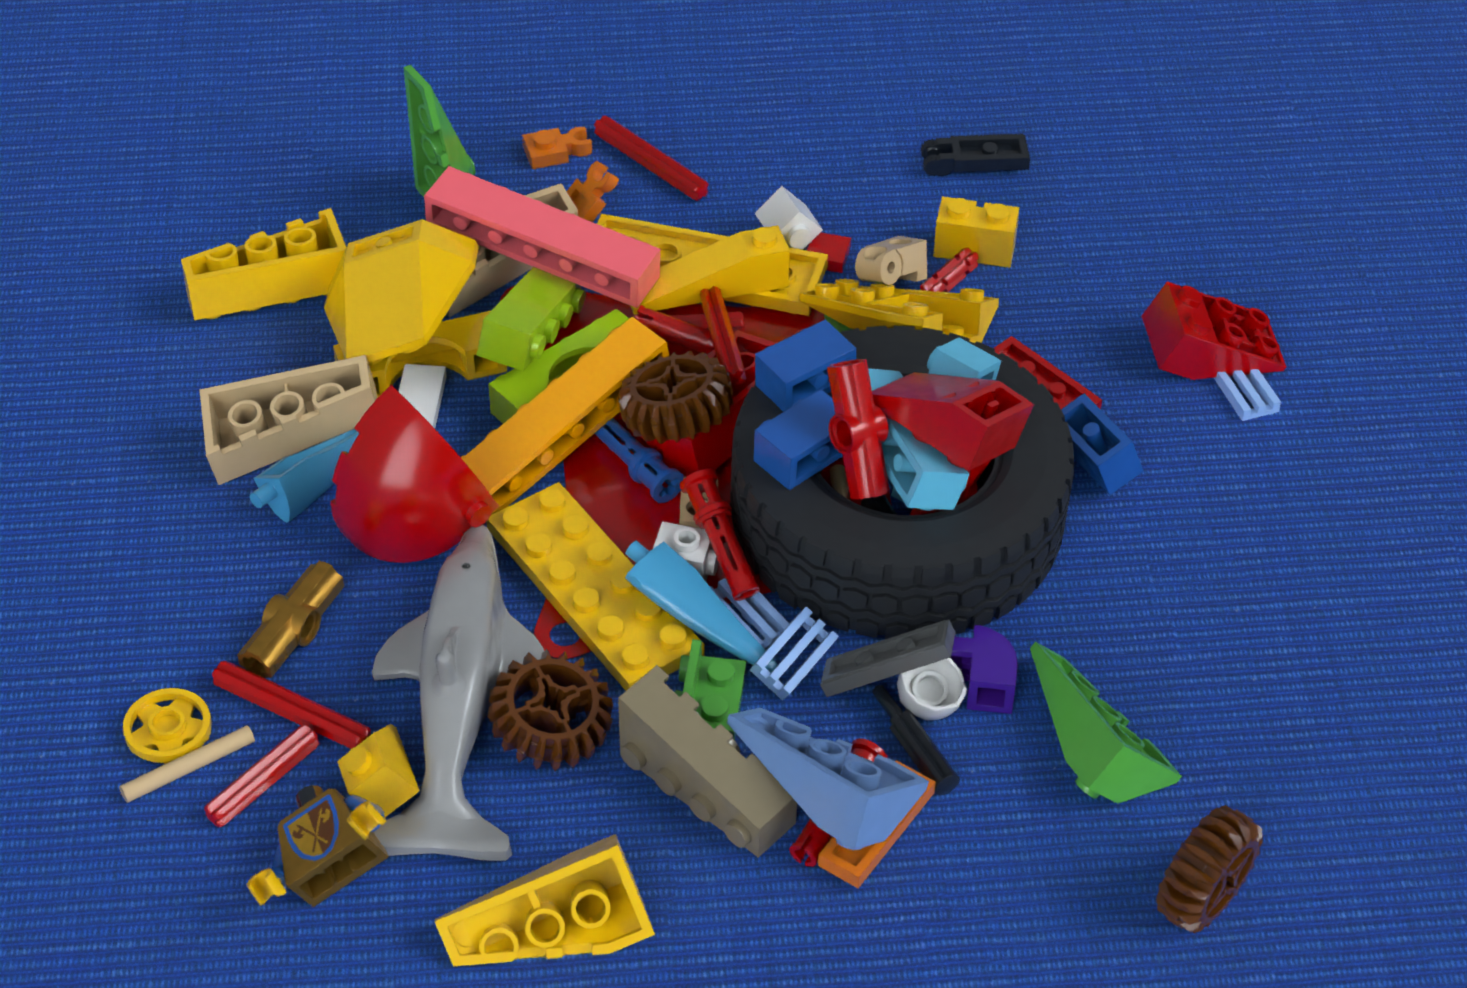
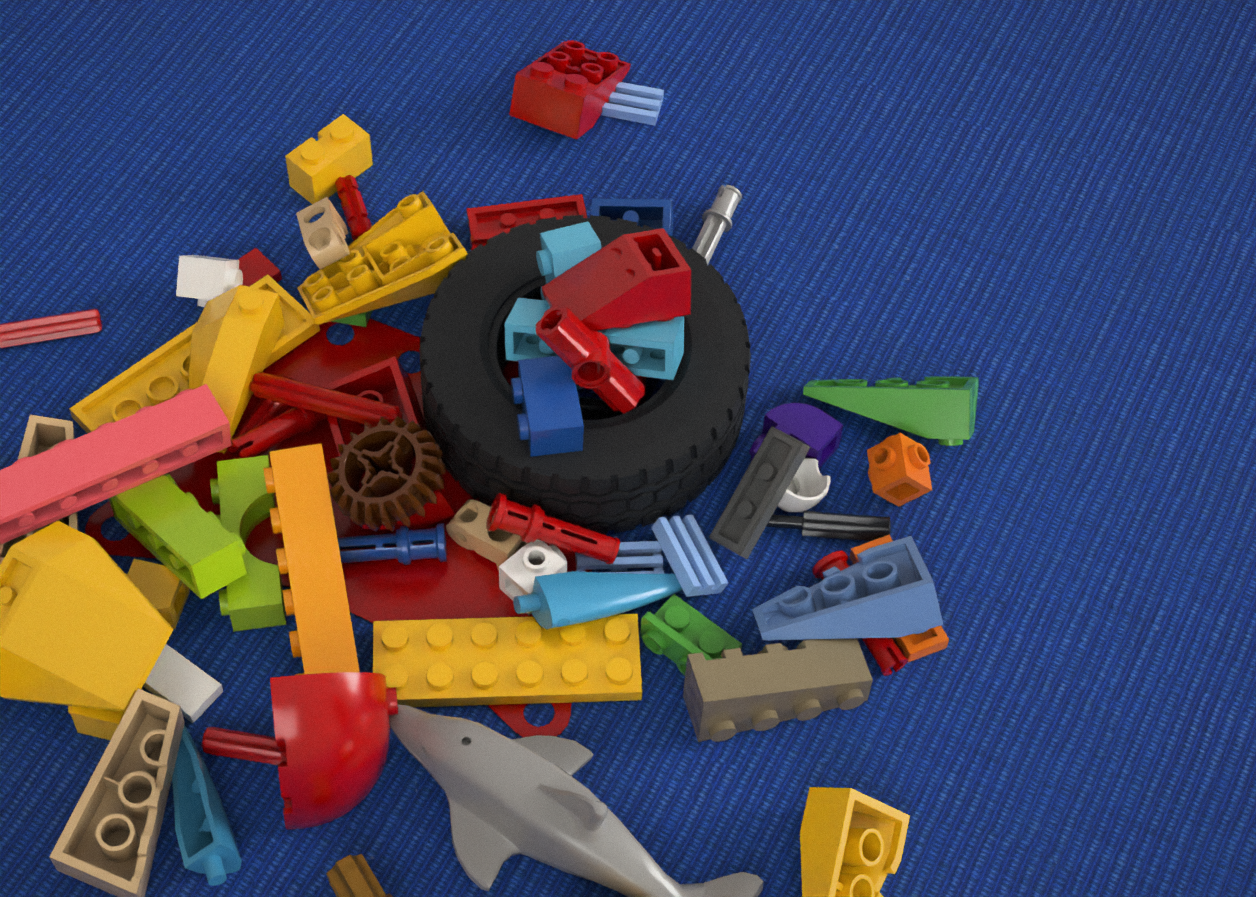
camera: 60 degrees left, 10 degrees up
(545, 730) = (661, 759): reddish brown gear -> none
(588, 194) = (39, 400): orange plate -> none
(800, 363) = (465, 357): blue brick -> none
(975, 154) = (231, 105): black hinge -> none
(1011, 754) = (899, 469): none -> orange brick
(1150, 508) = (717, 220): none -> light grey axle
(1209, 868) = (1092, 410): reddish brown gear -> none

